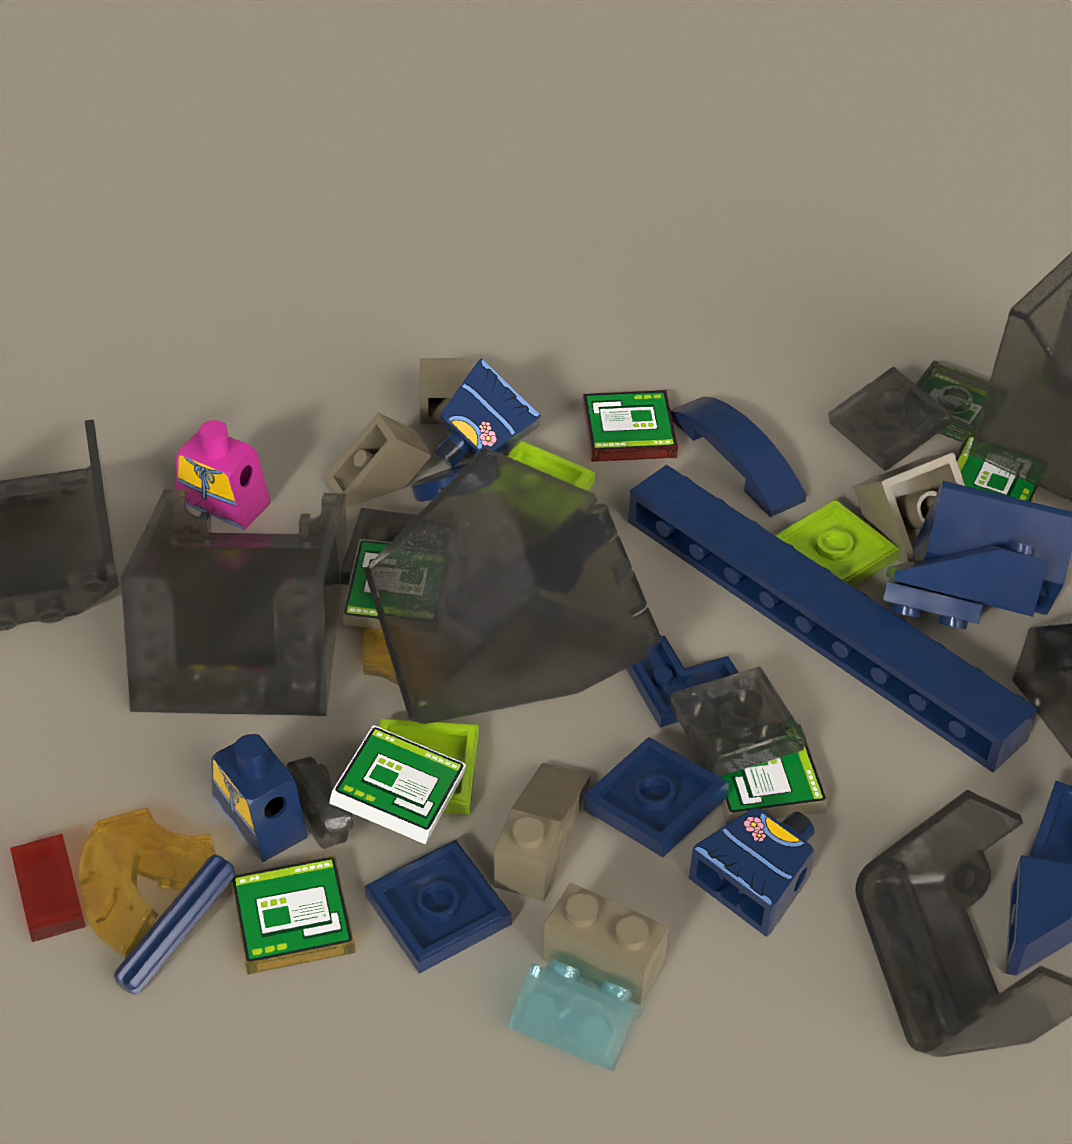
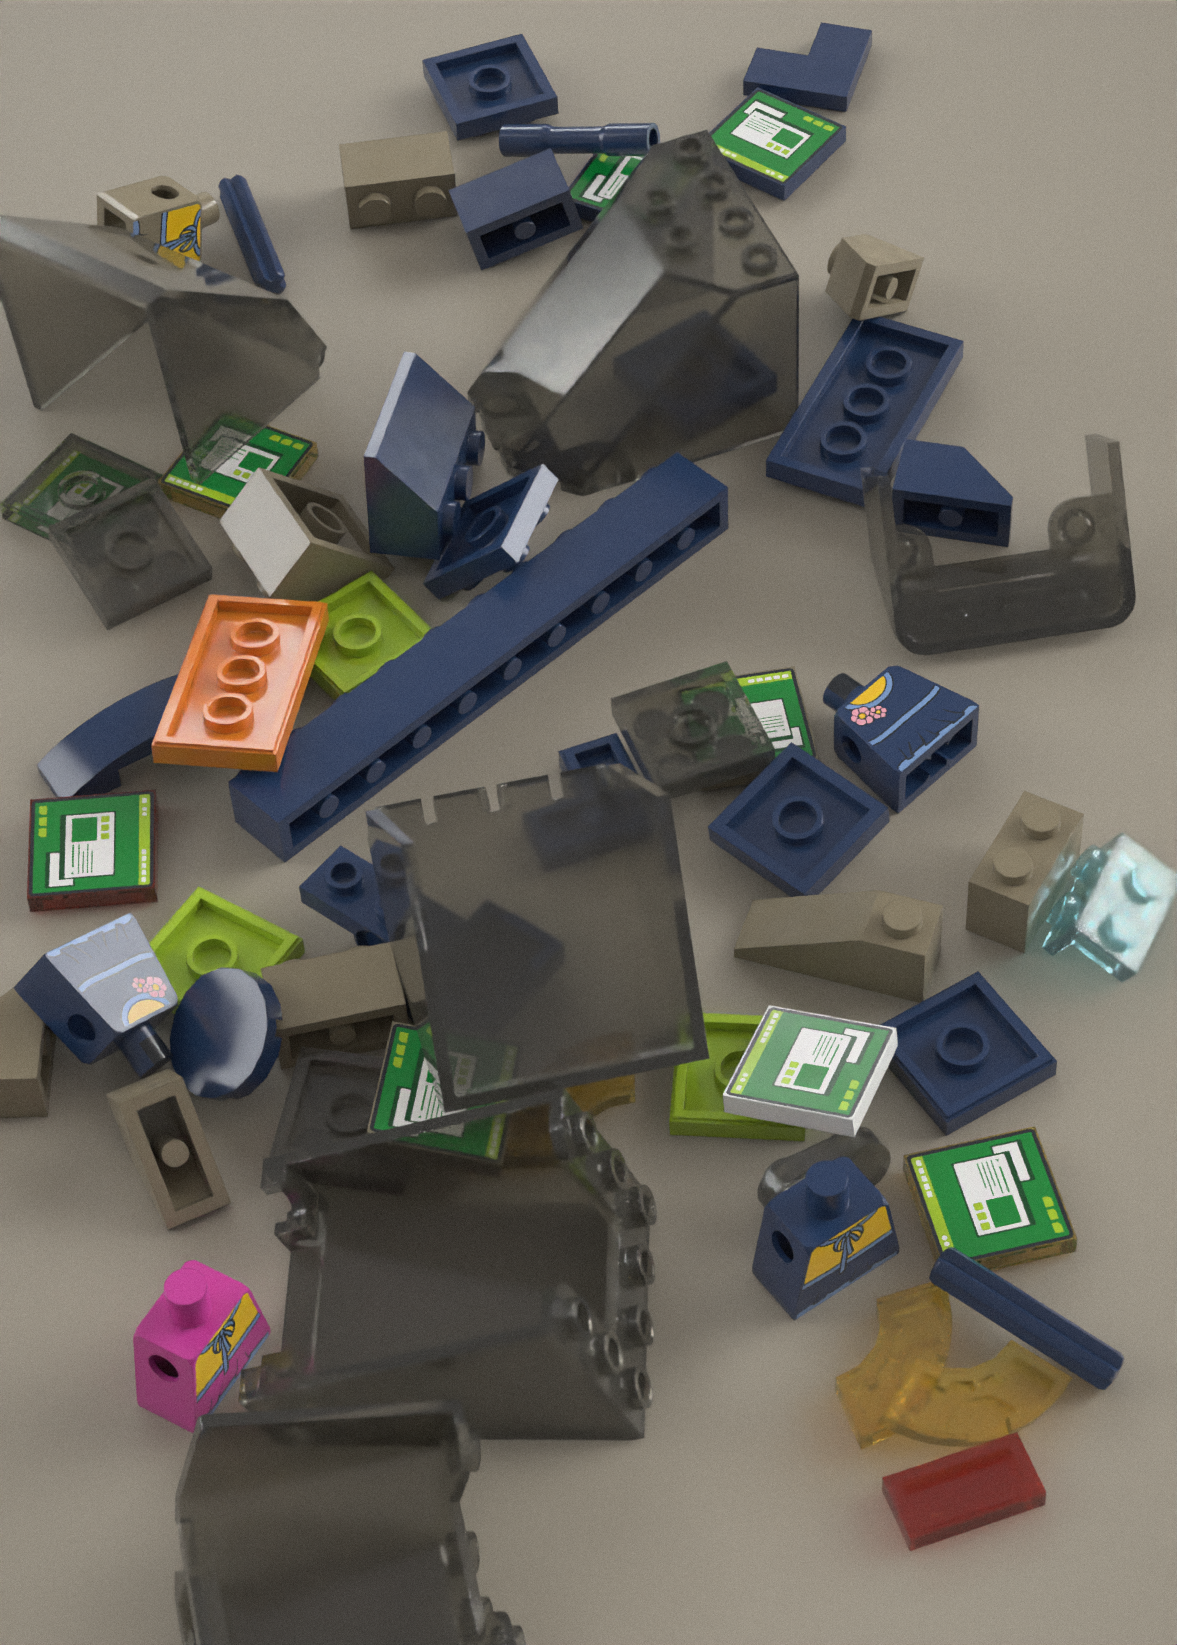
camera: 85 degrees left, 5 degrees up
(761, 469) = (241, 683): none -> orange tile
(984, 575) = (481, 470): dark blue slope -> none

